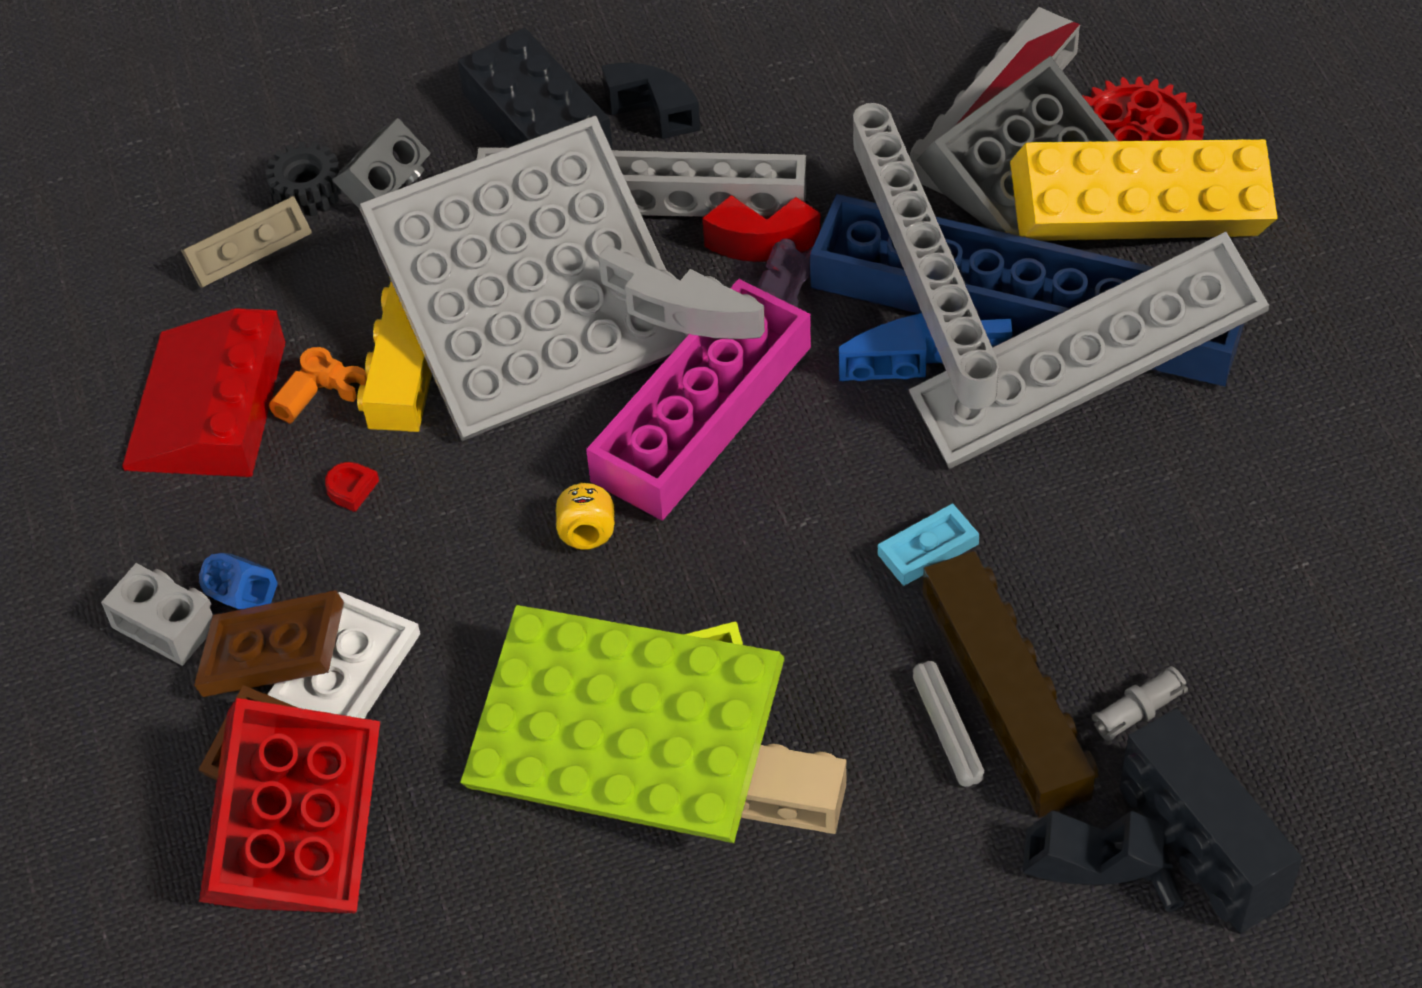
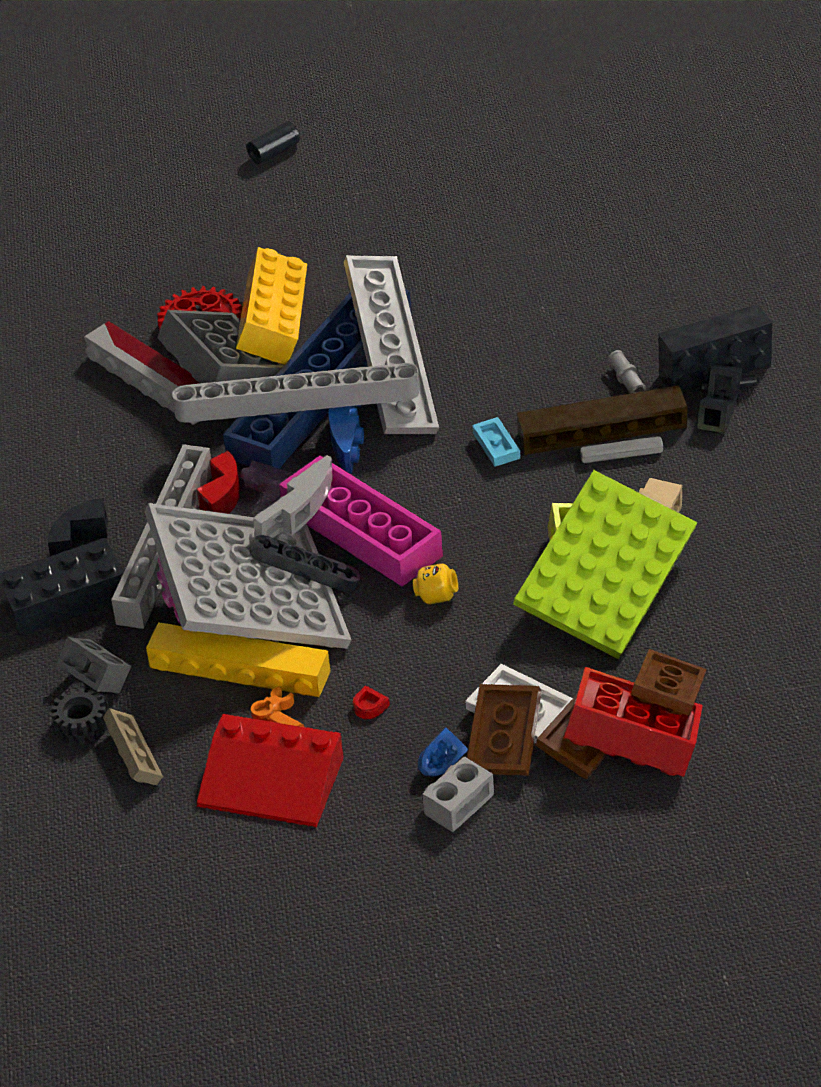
camera: 80 degrees left, 10 degrees down
(368, 846) = (668, 682): none -> reddish brown plate
(586, 345) = (332, 572): none -> black beam

